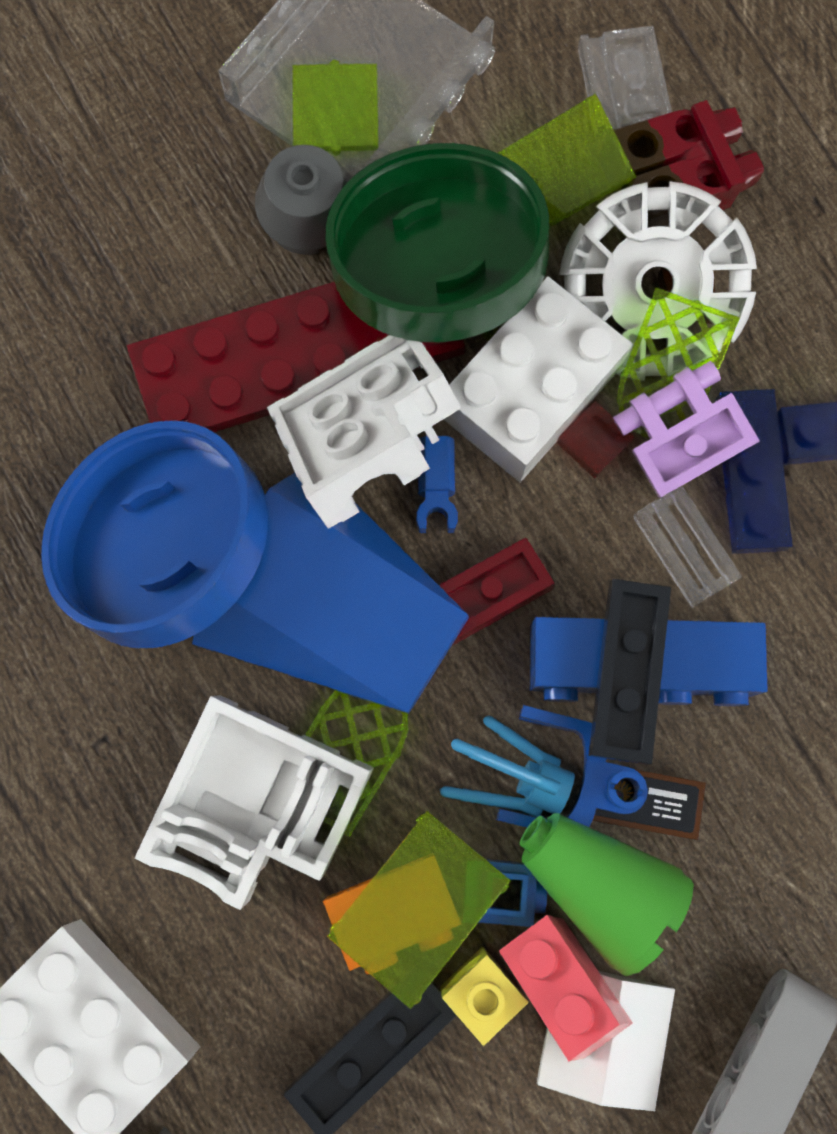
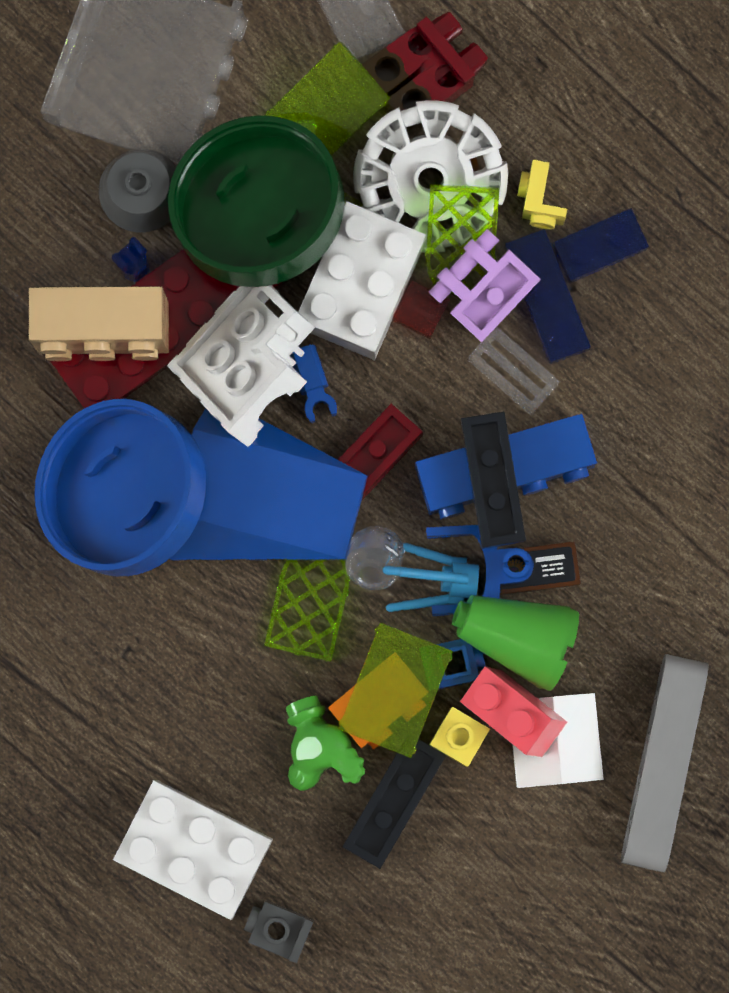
camera: 15 degrees left, 5 degrees up
(195, 318) = (99, 322): none -> tan brick
(249, 796) = (249, 653): white piece -> none
(266, 270) = (132, 260): none -> clear blue bar
(297, 949) = (319, 746): none -> bright green animal
(336, 106) = (136, 104): clear neon green piece -> none
(439, 716) = (368, 555): none -> clear head
(770, 362) = (532, 188): none -> light yellow bracket

